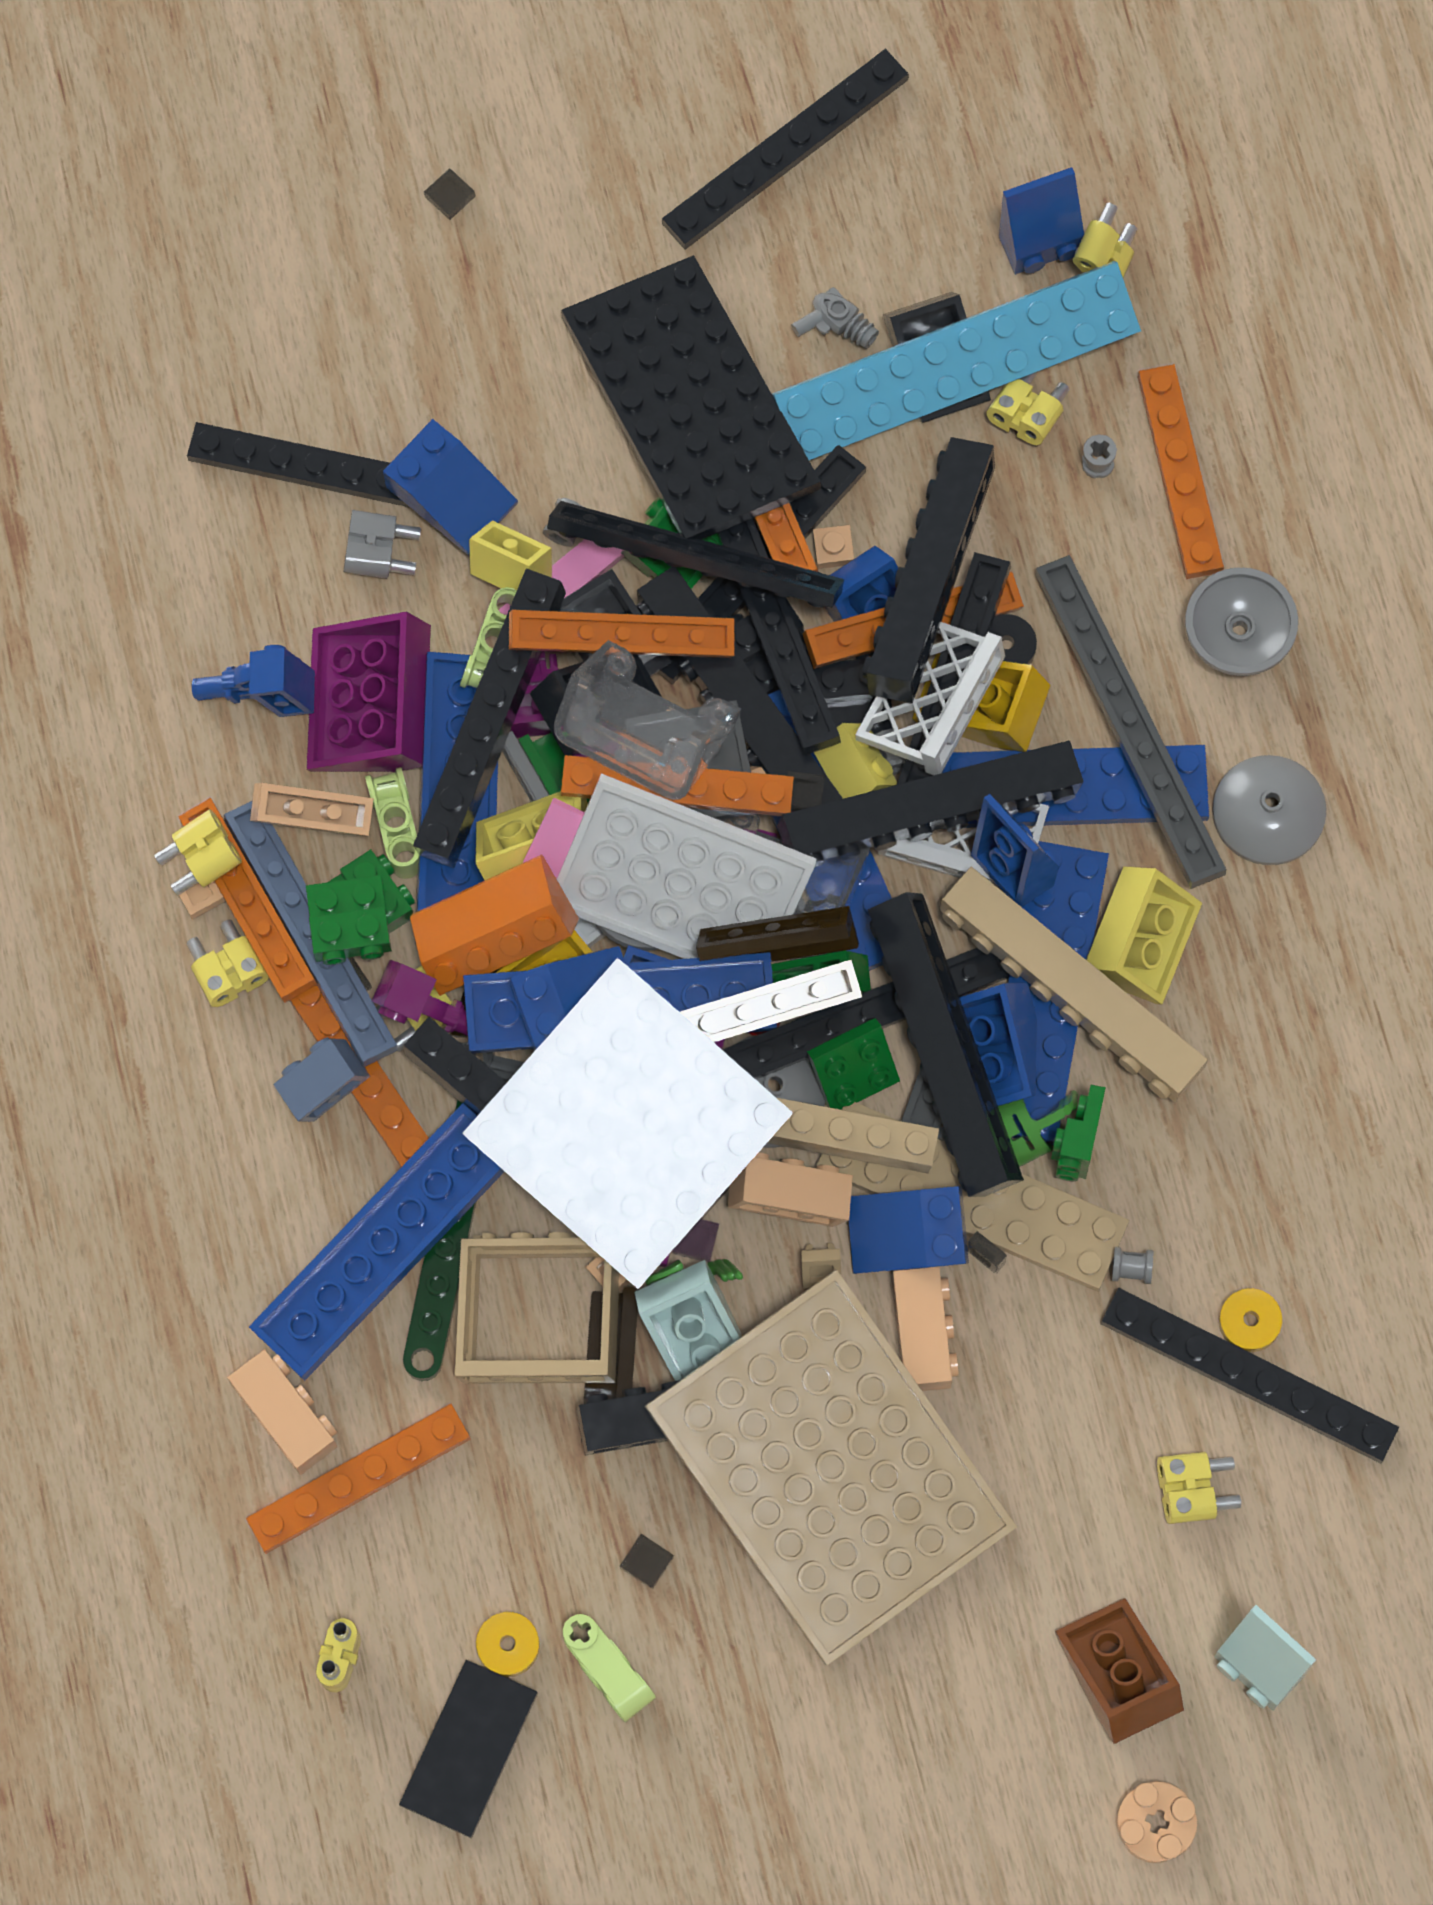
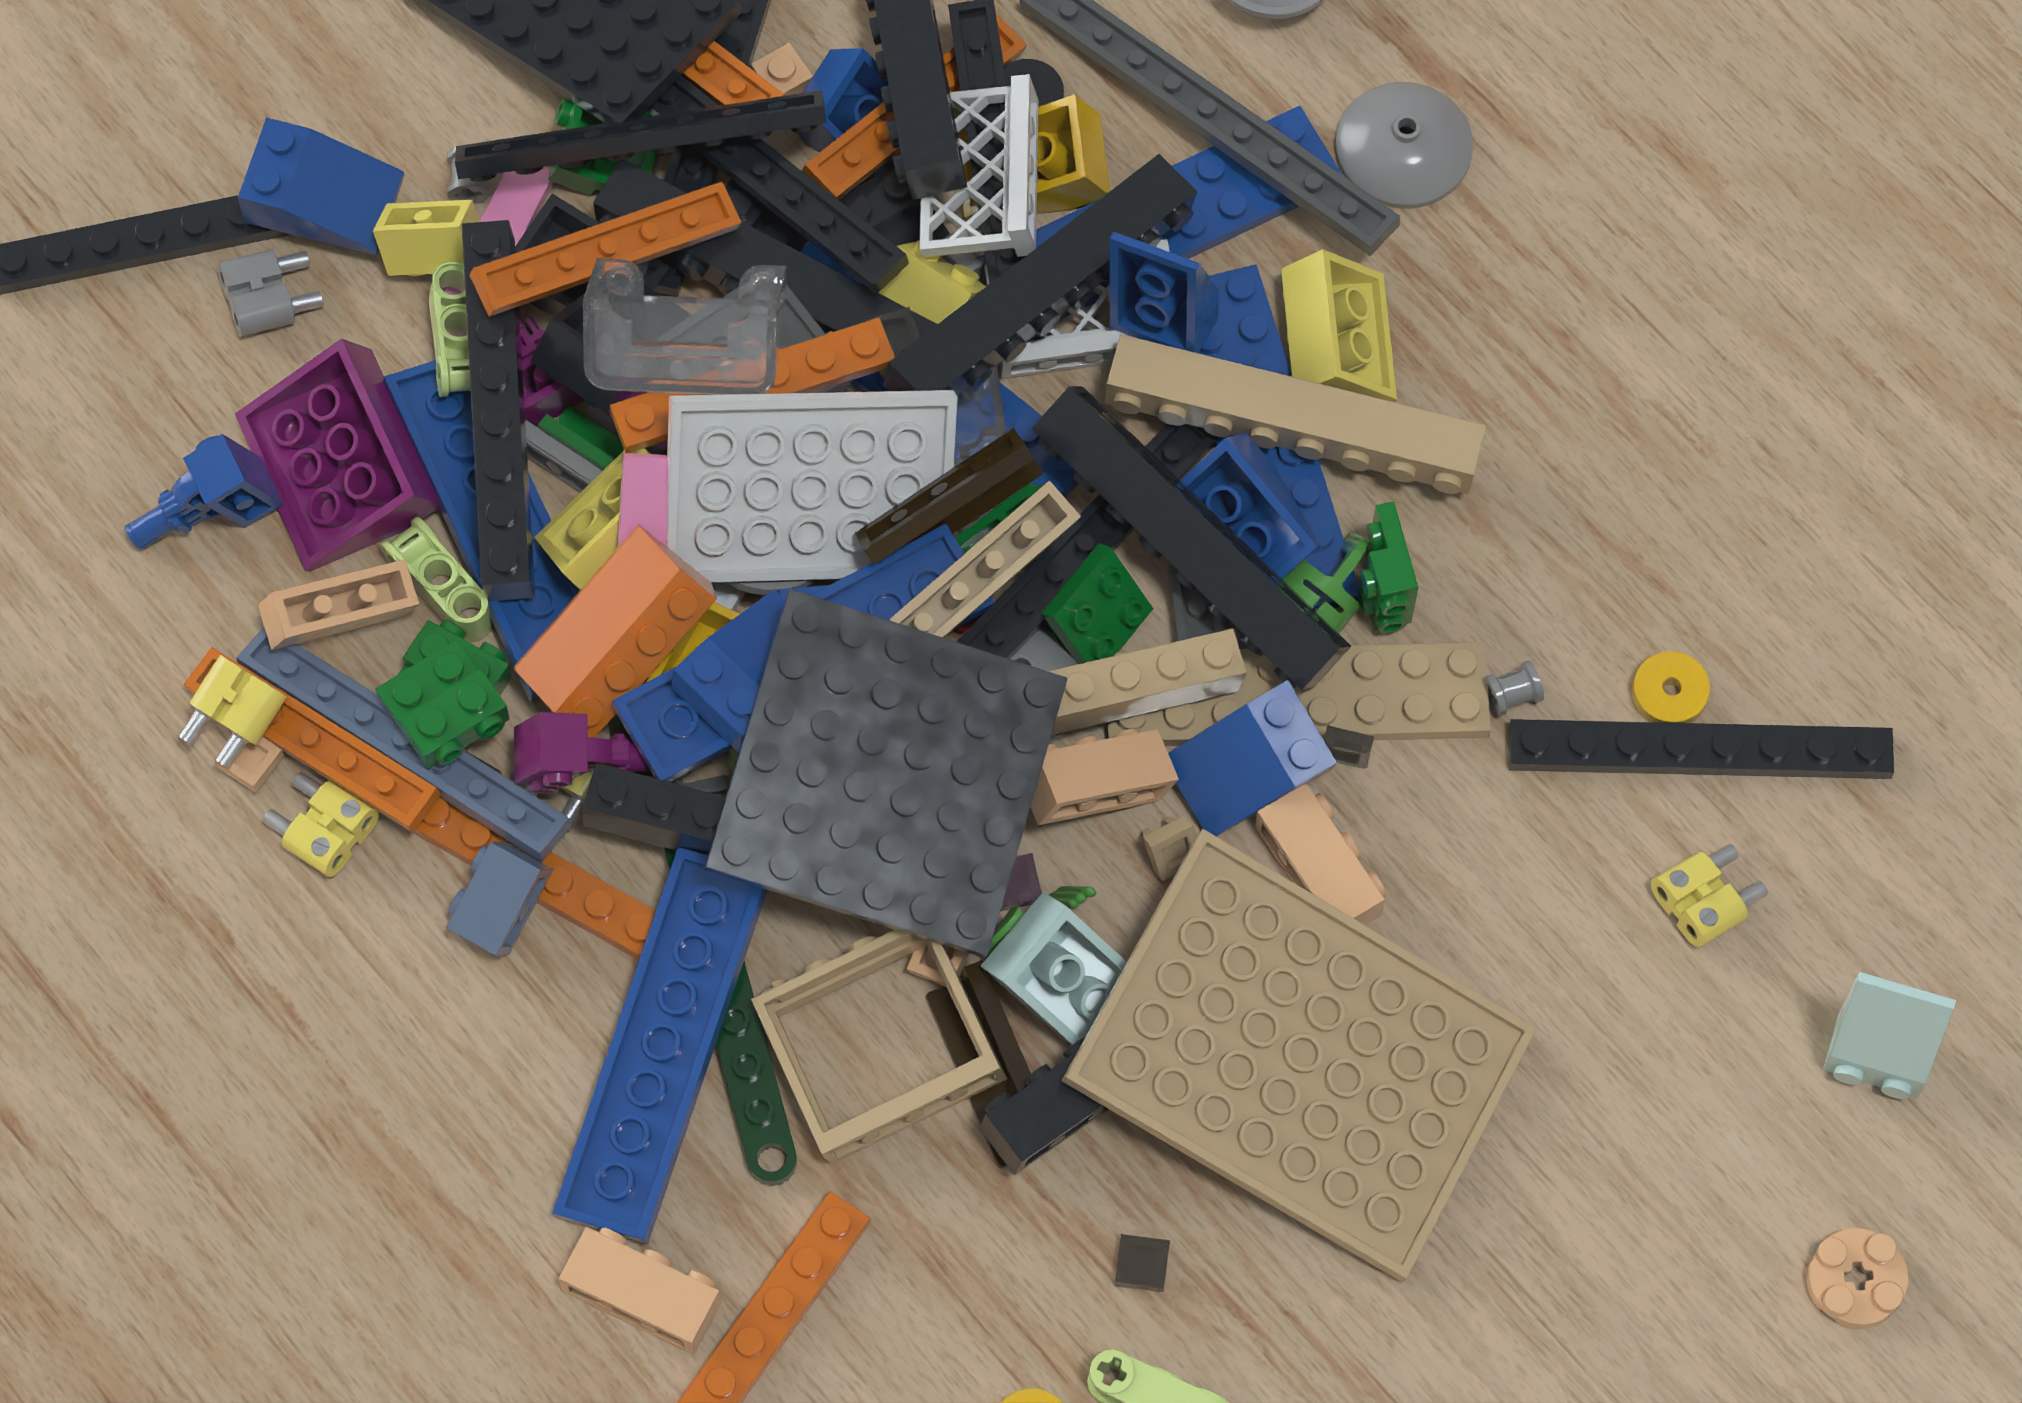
camera: 30 degrees left, 5 degrees down
(1120, 1671) = (1733, 1130): dark orange slope -> none

